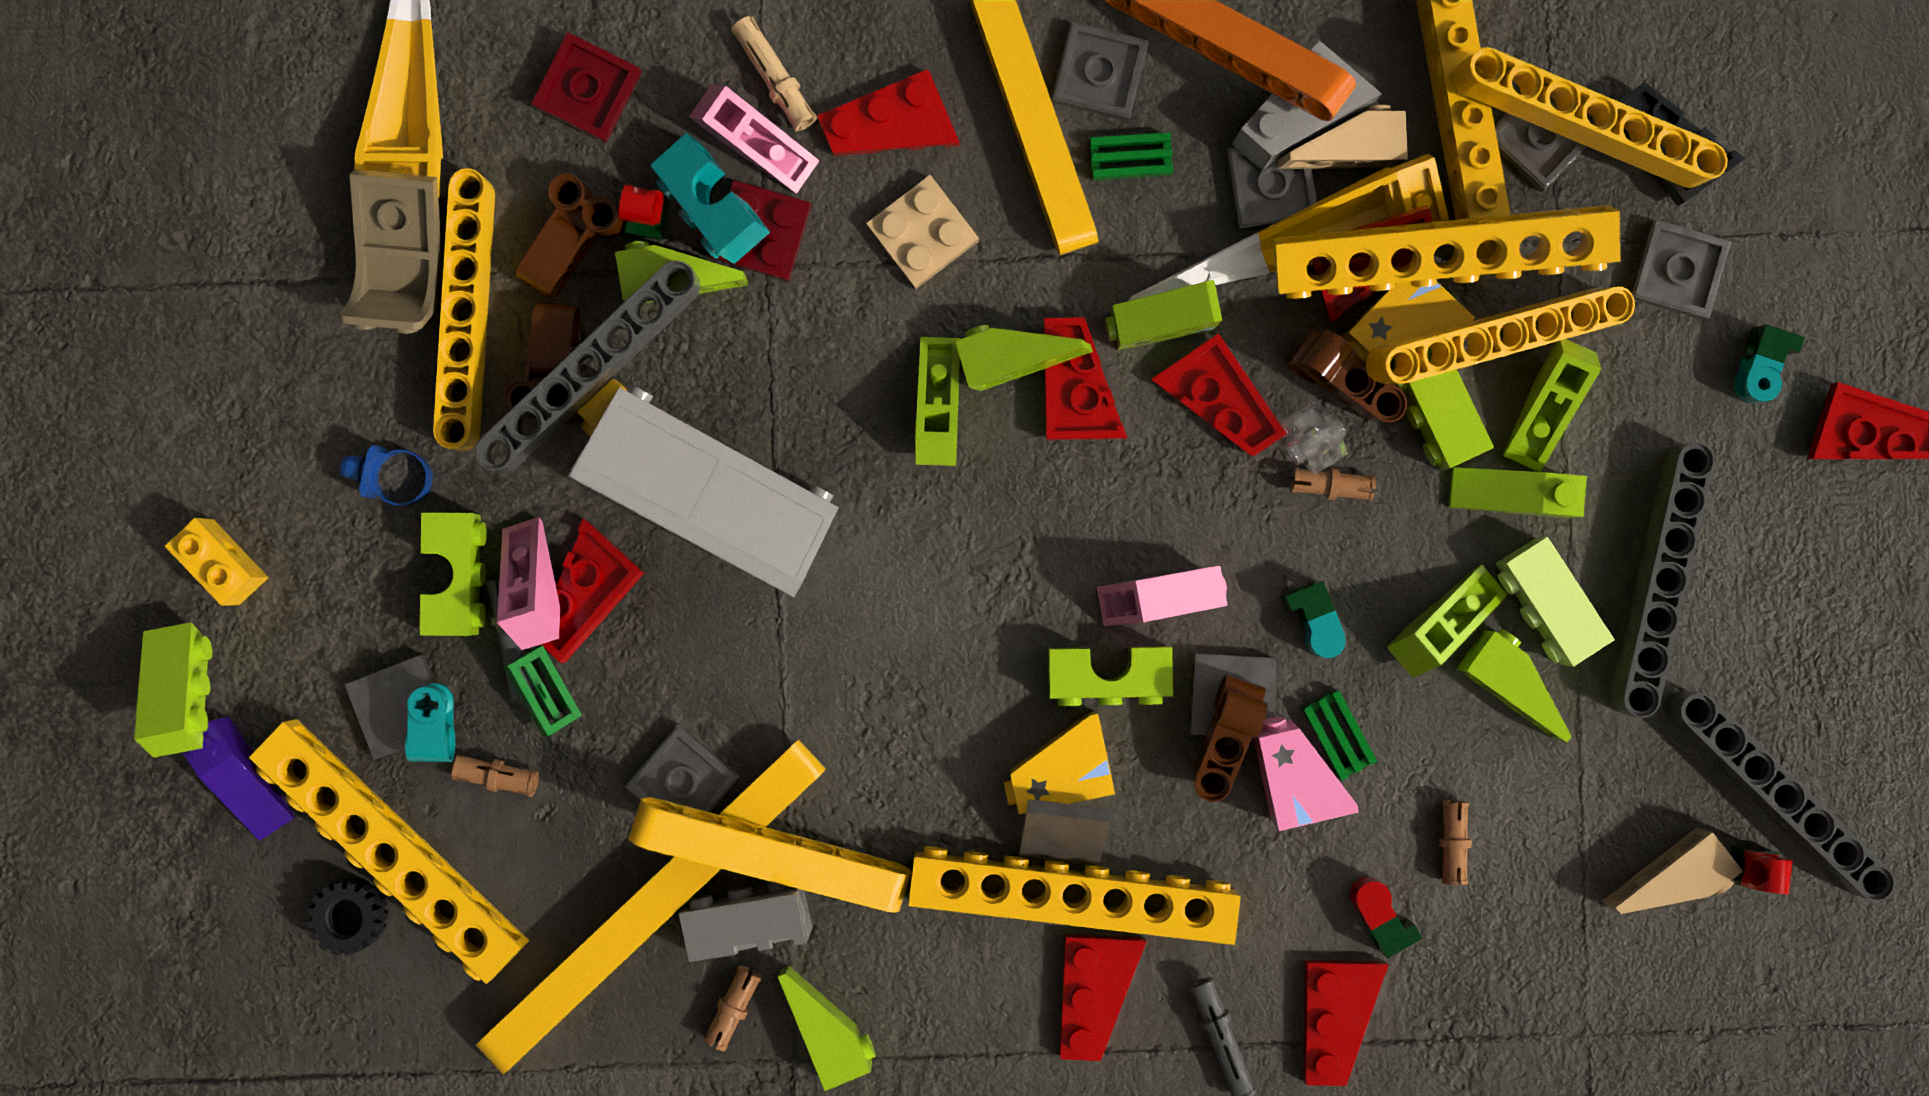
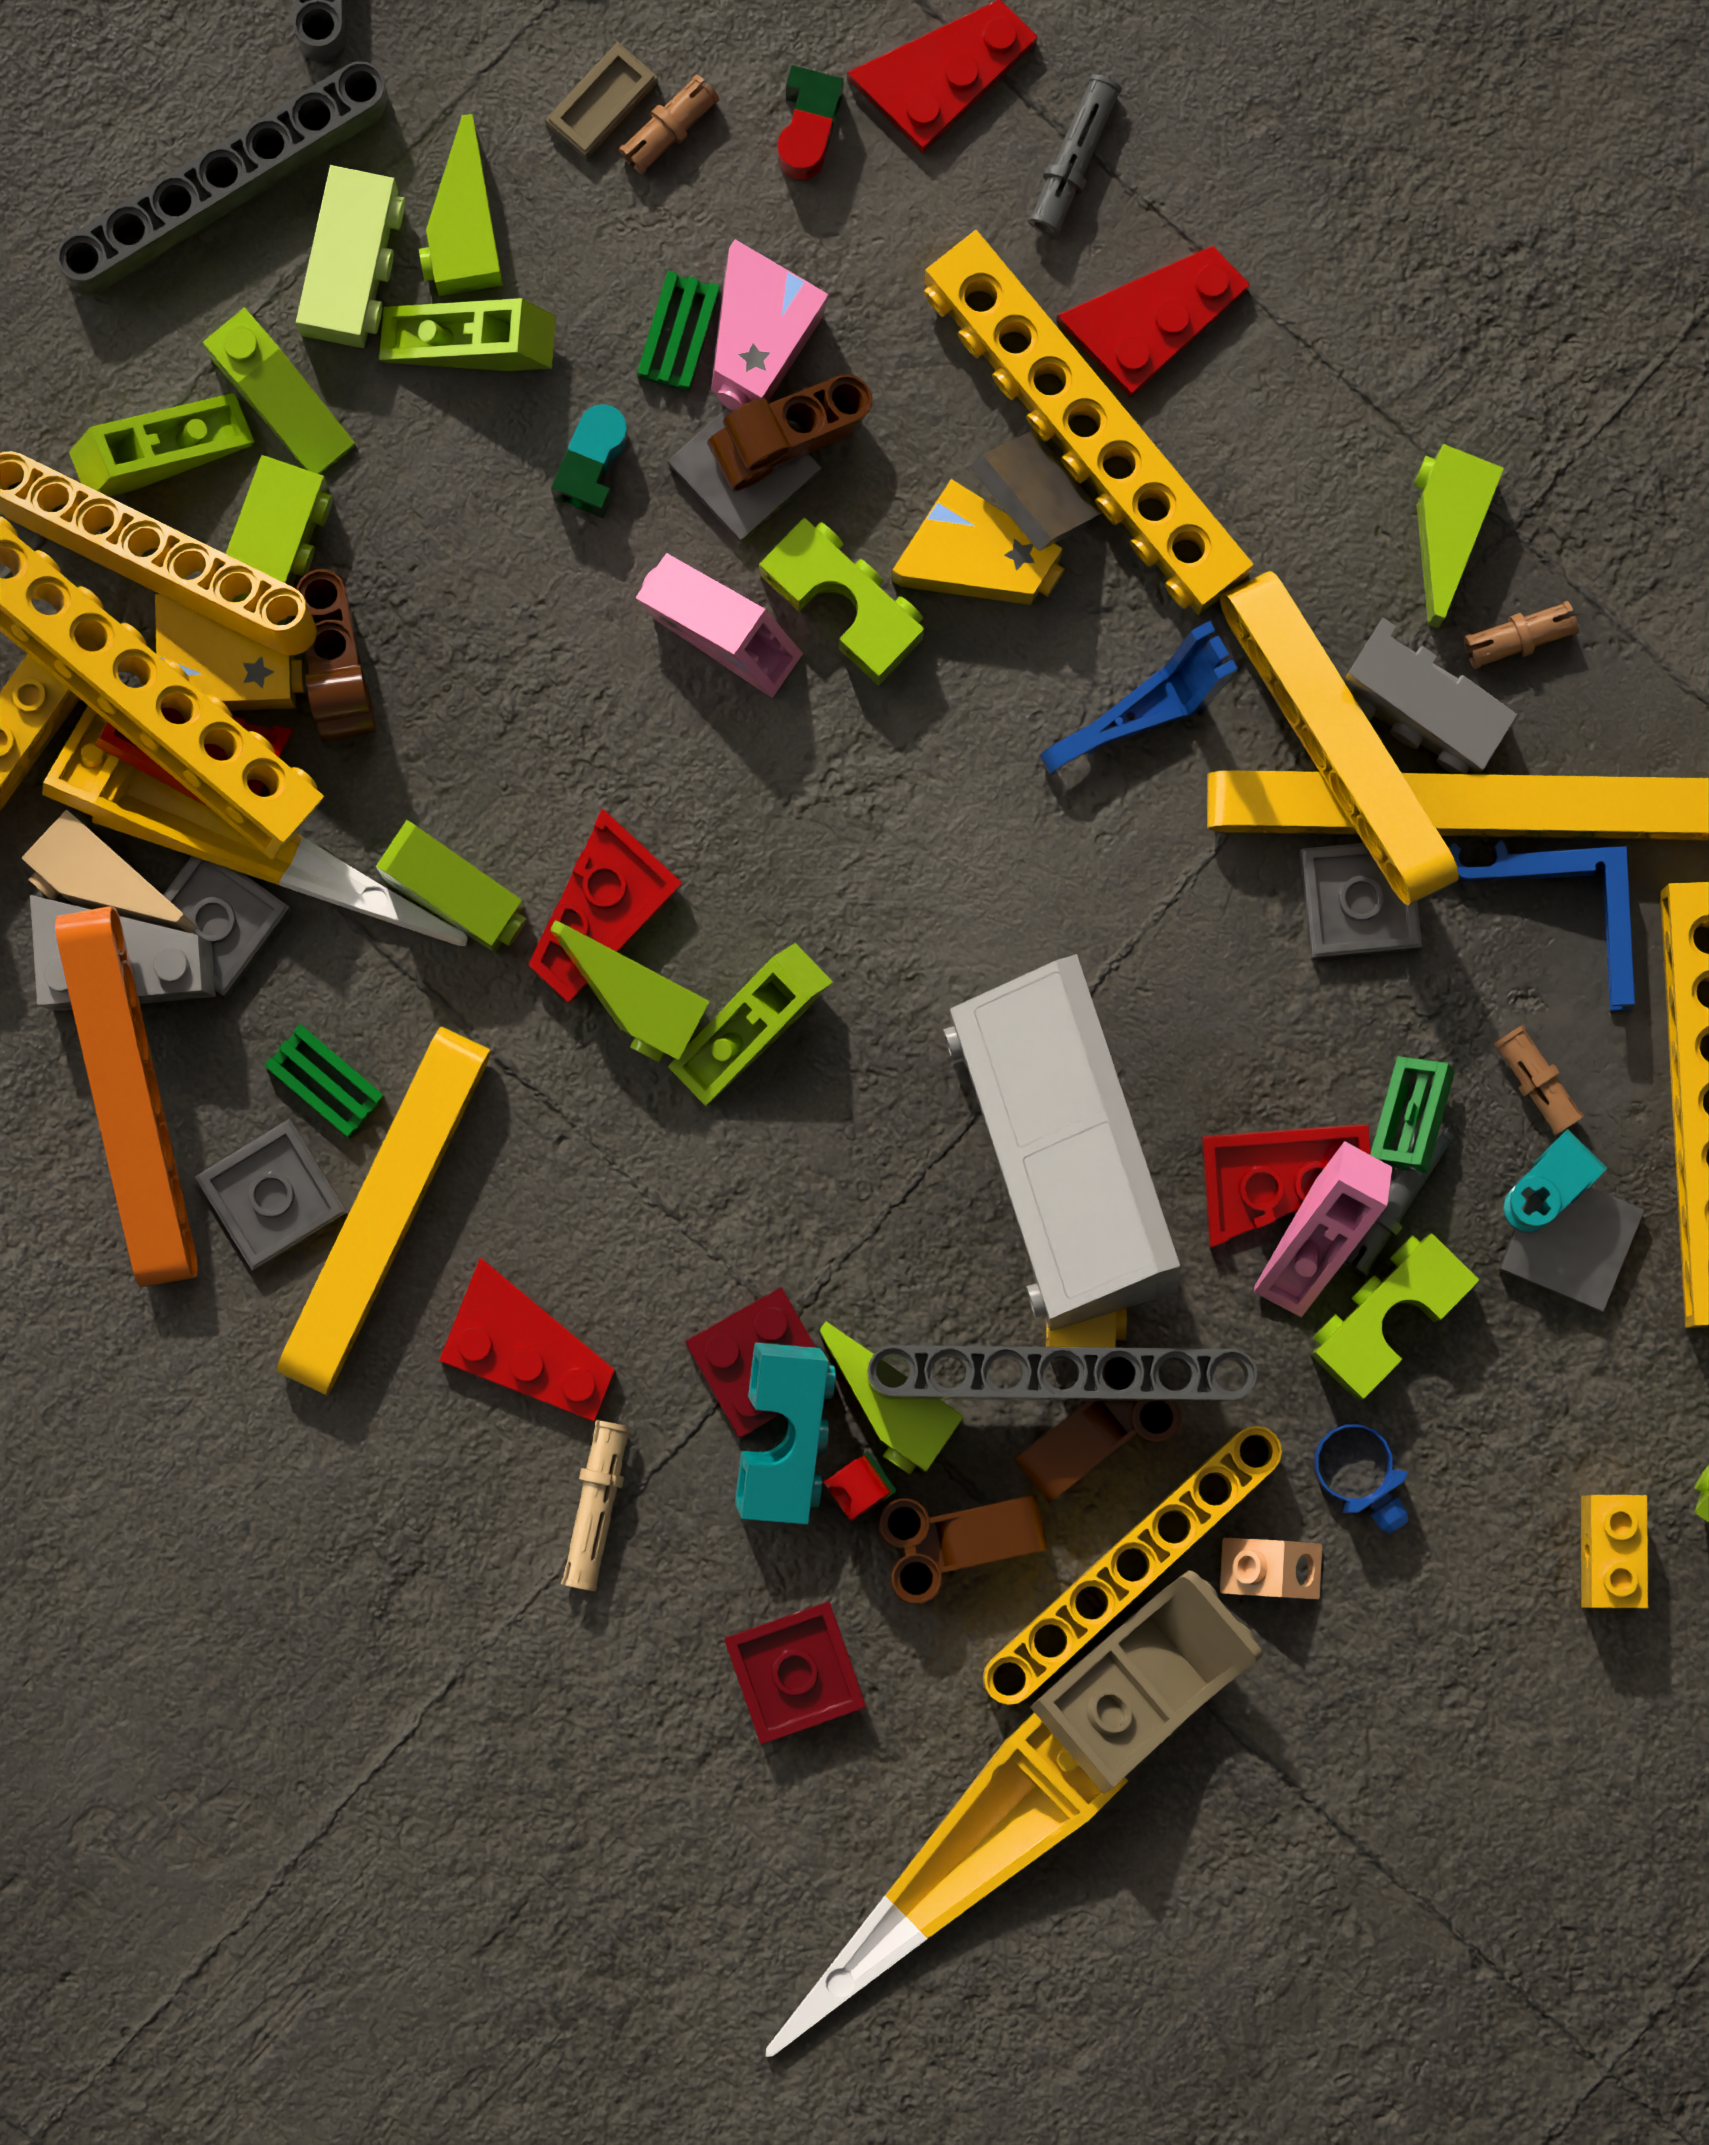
camera: 140 degrees left, 5 degrees down
(391, 378) = (1269, 1568): none -> light nougat bracket
(542, 910) = (1578, 864): none -> blue hinge
(753, 137) = (678, 1459): bright pink slope -> none
(888, 791) = (1172, 694): none -> blue hinge
(922, 232) = (602, 1206): tan plate -> none
(1222, 395) = (467, 761): red wing -> none
(1314, 437) = (422, 631): clear brick -> none
(1333, 484) = (446, 573): medium nougat pin -> none
(1503, 820) = (601, 100): none -> dark tan tile

